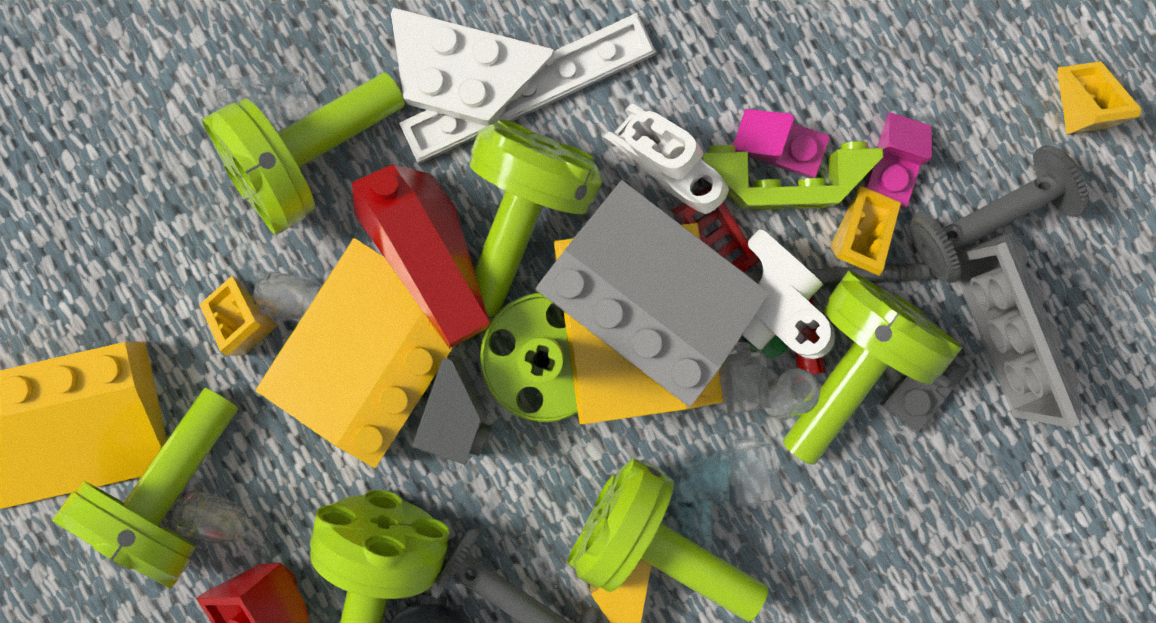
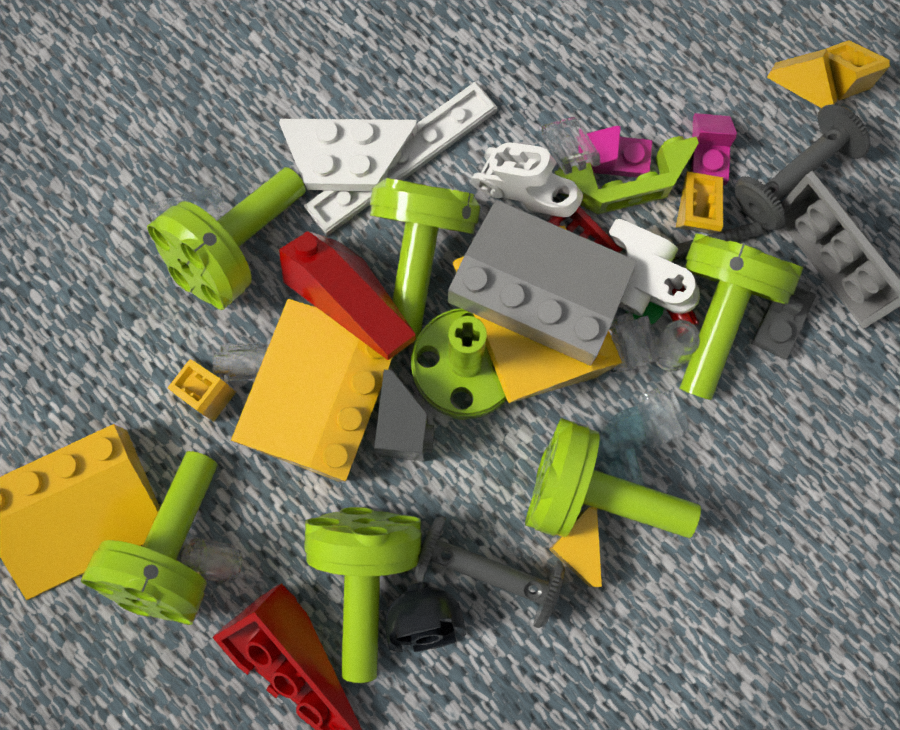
camera: 10 degrees left, 10 degrees down
(732, 146) = (566, 162): none -> clear tile
(1036, 101) = (808, 77): none -> yellow slope

